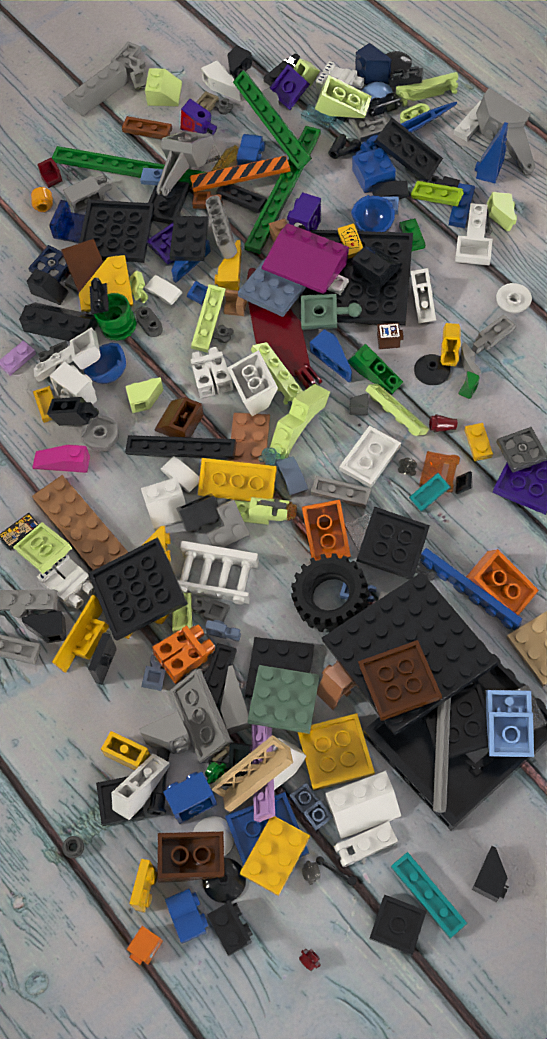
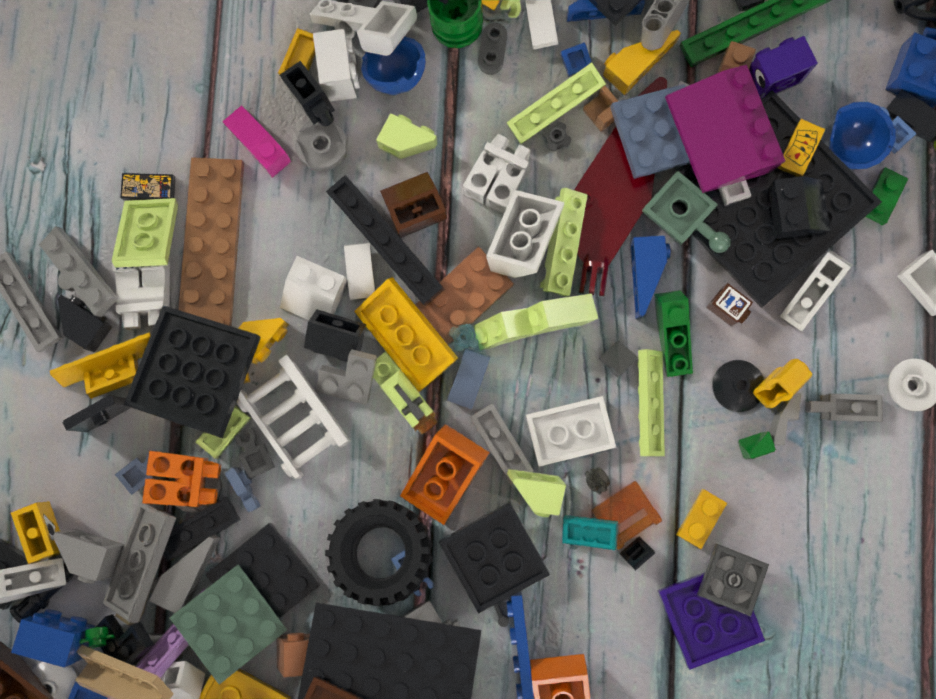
camera: 40 degrees right, 20 degrees up
(383, 494) = (541, 491): none -> yellowish green slope
(441, 423) = (682, 463): dark red cone -> none

